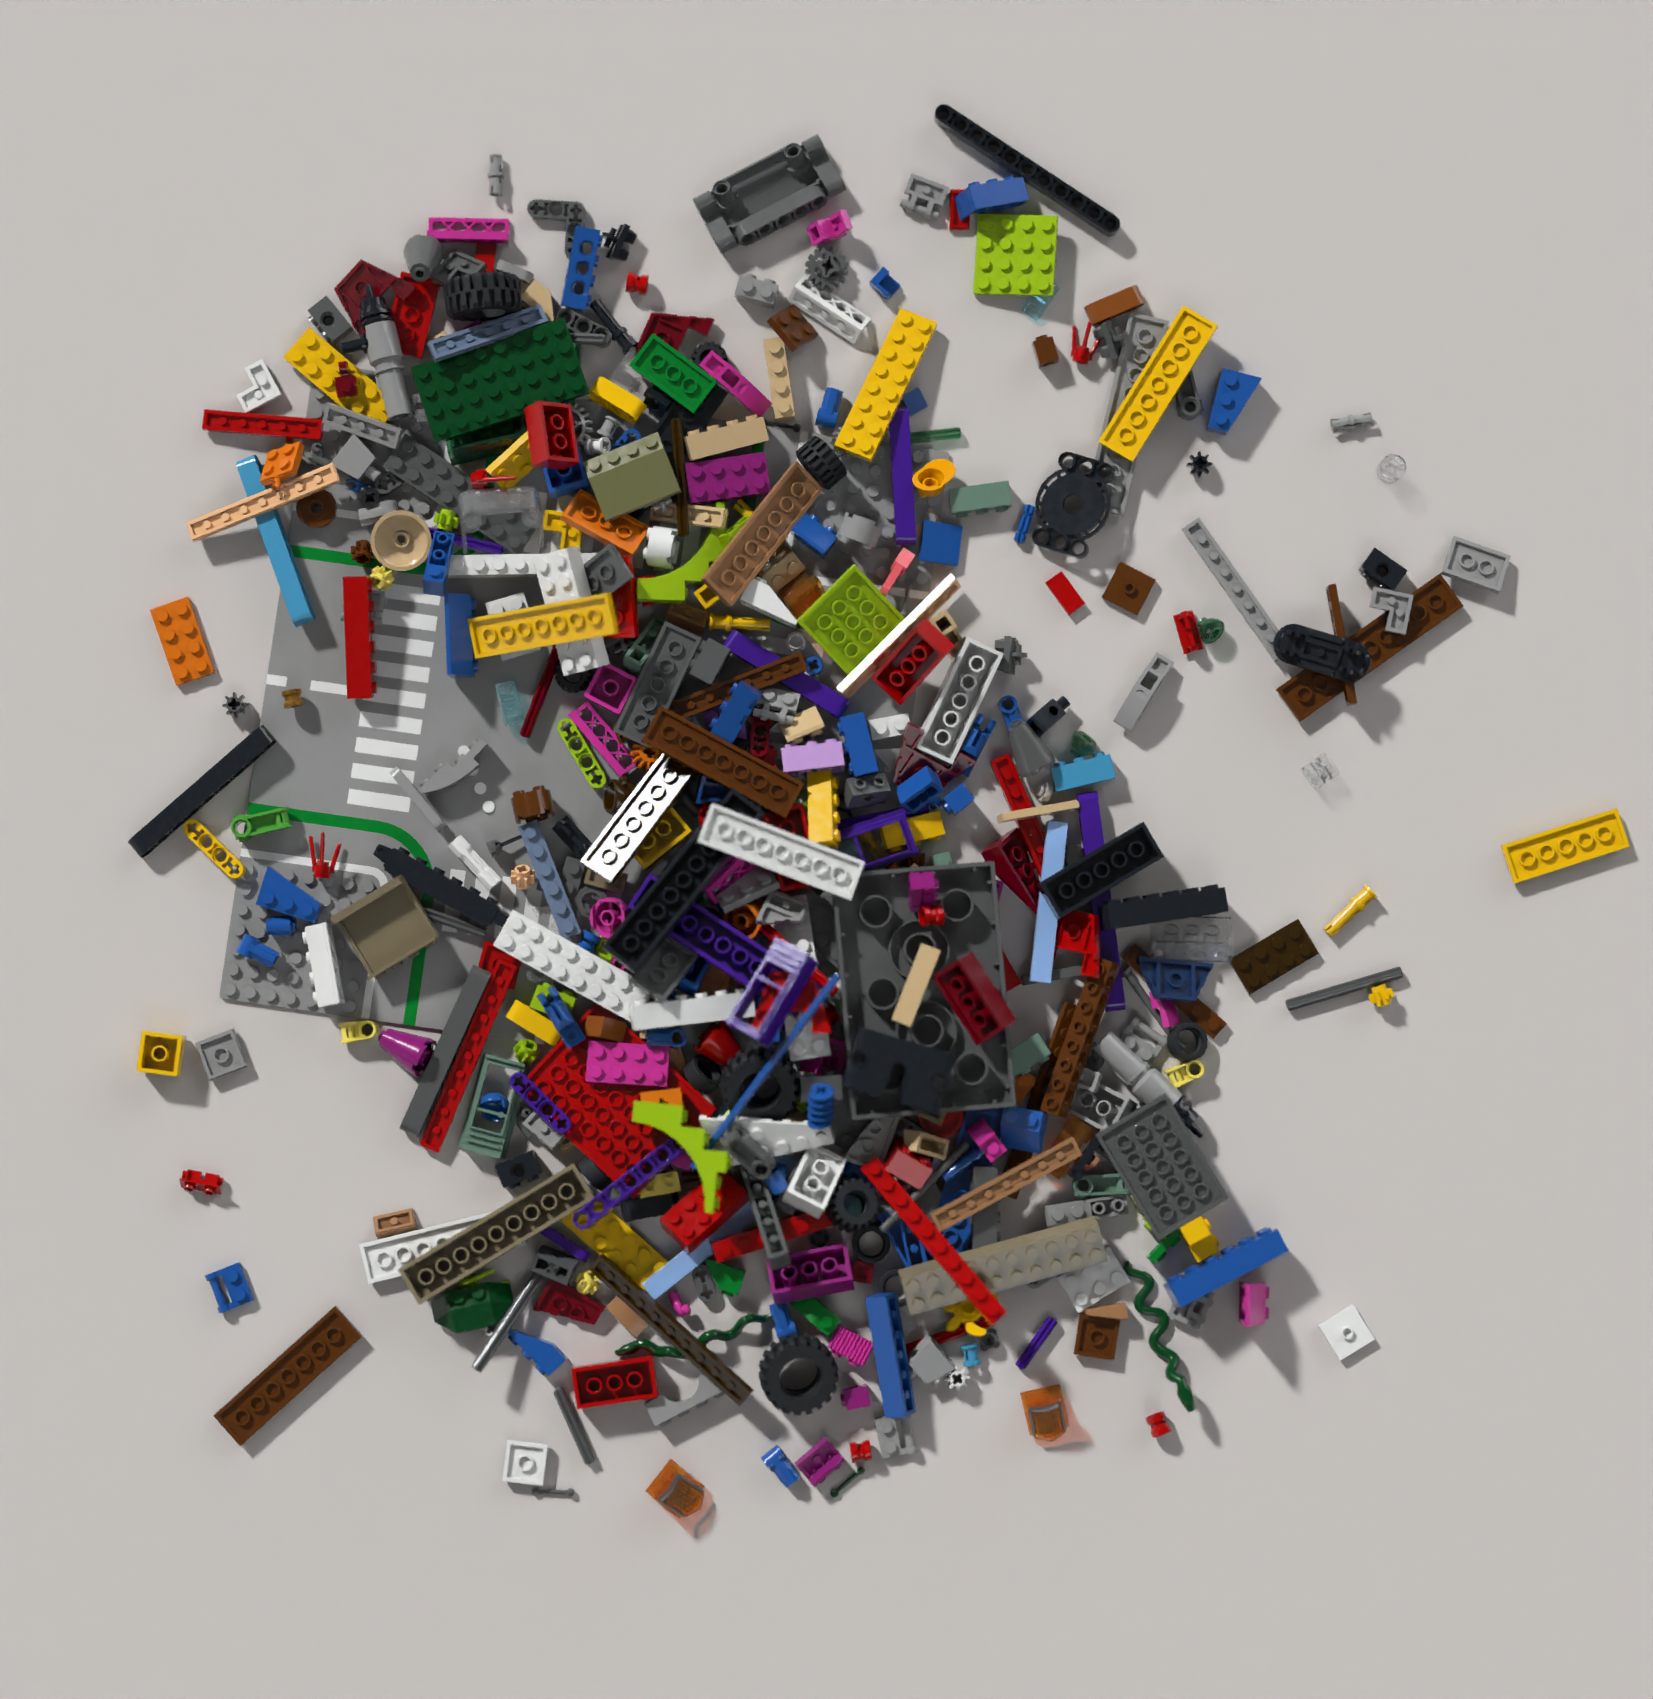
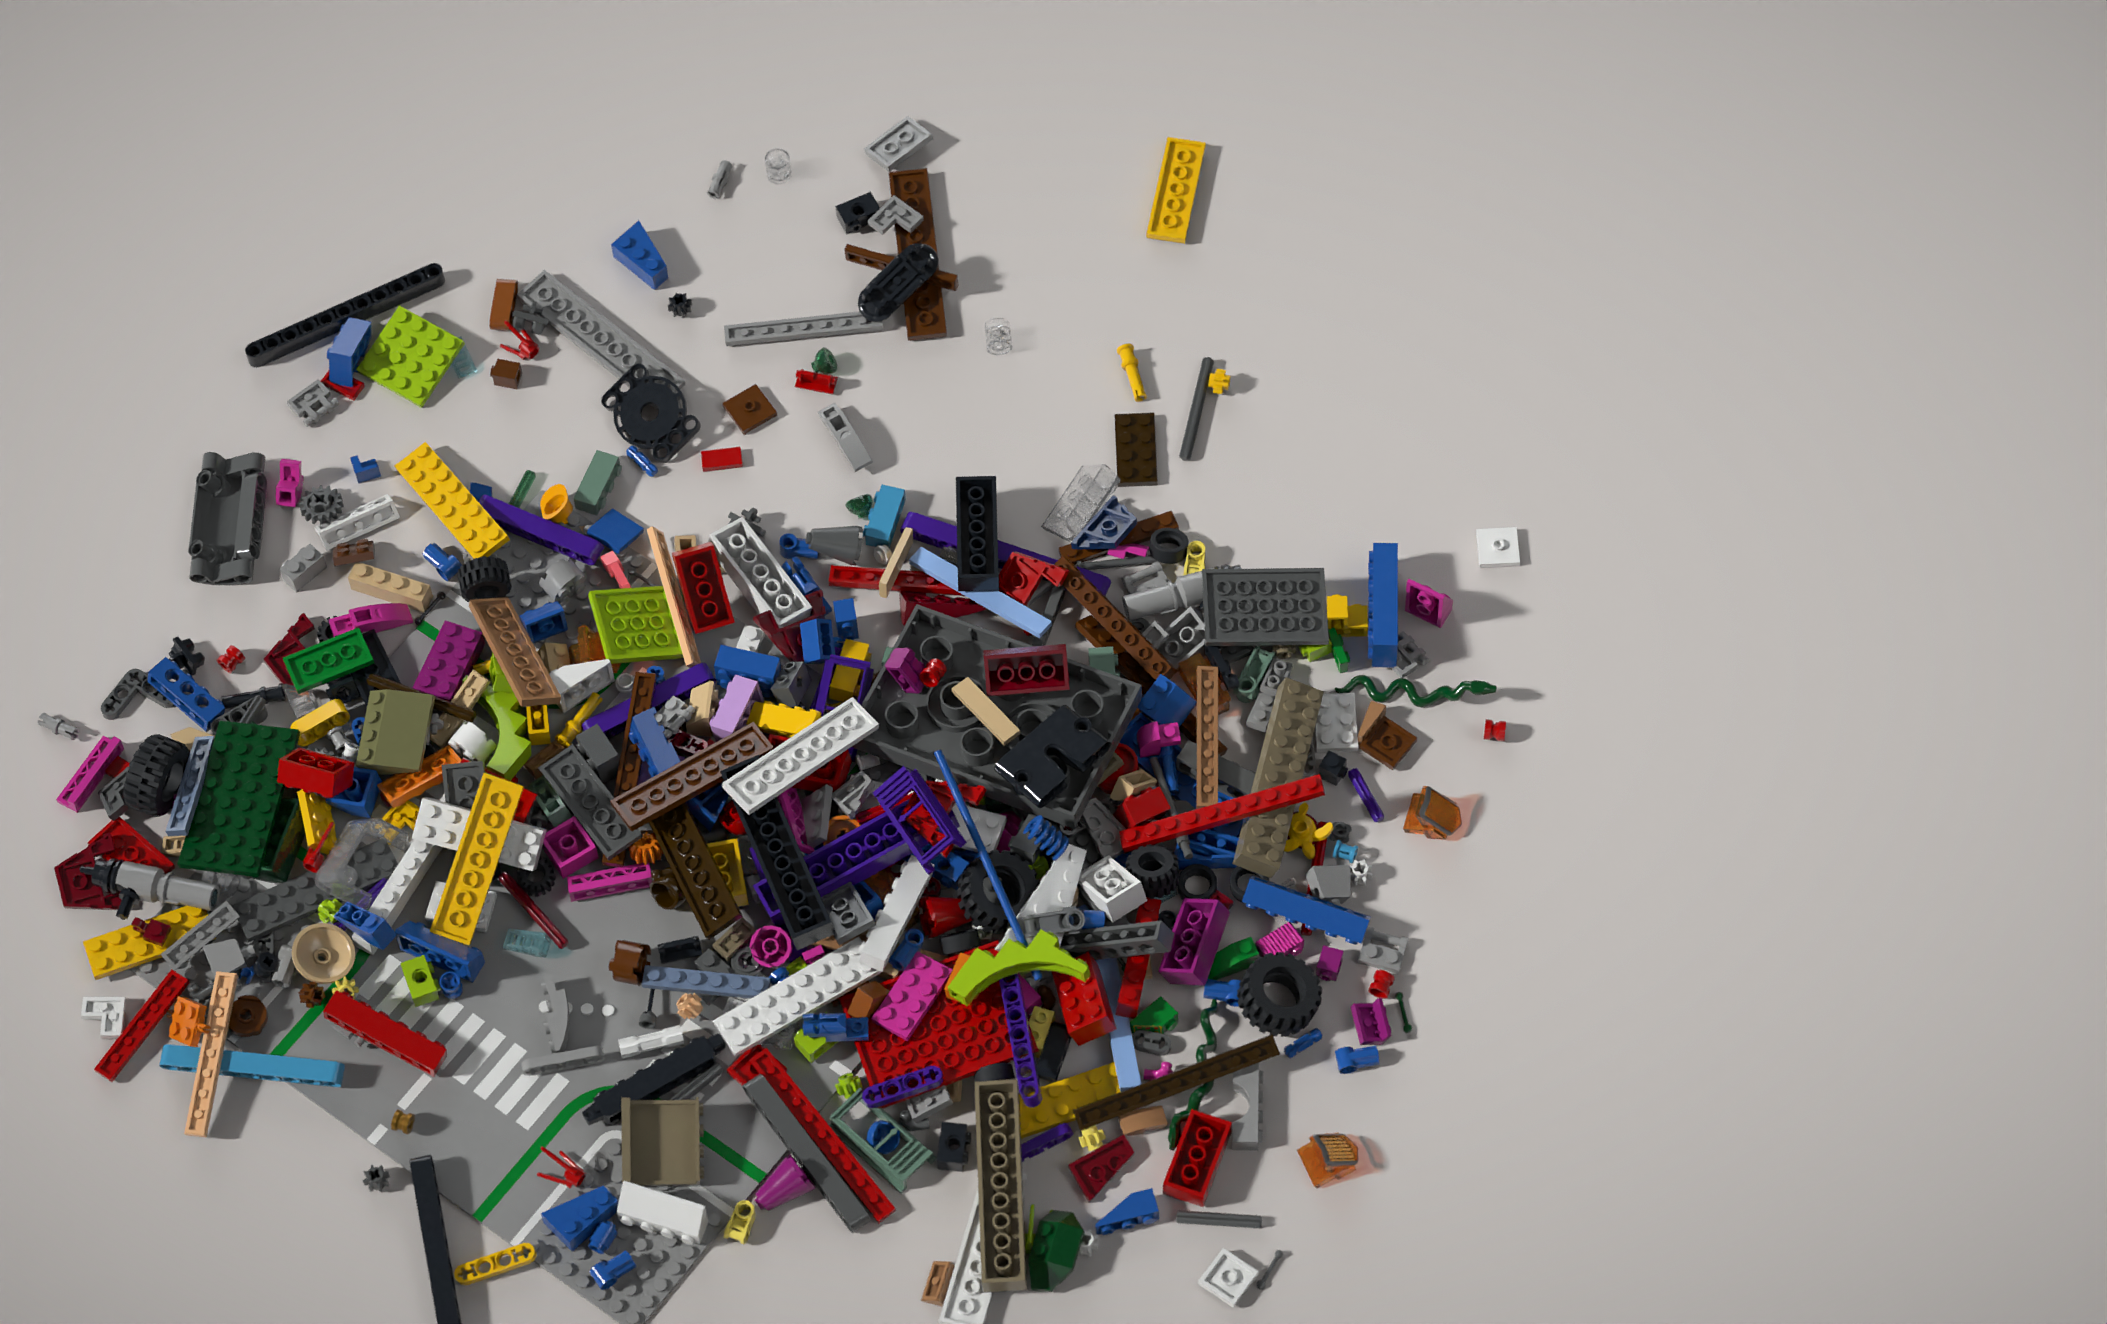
camera: 60 degrees left, 25 degrees down
(182, 641) = (288, 1198): orange plate -> none
(261, 823) = (498, 1207): bright green piece -> none
(340, 326) = (79, 918): dark grey brick -> none
(413, 638) = (421, 992): none -> lime brick
(423, 256) = (86, 815): dark grey cone -> none
(432, 661) = (449, 980): none -> blue wheel
(507, 1322) = (1086, 1218): dark grey axle -> none
(533, 1022) = (827, 1062): yellow beam -> none
(554, 1264) = (1058, 1156): dark grey brick -> none
(580, 754) = (610, 901): lime beam -> none
(725, 438) = (412, 646): tan brick -> none
(772, 1412) = (1303, 1043): none -> blue axle
(1043, 720) = (817, 512): black torso -> none
(1044, 1303) = (1333, 768): none -> black brick
(1157, 909) = (1040, 501): black brick -> none
(1158, 384) = (592, 298): yellow plate -> none
(1188, 395) = (610, 286): dark grey piece -> none

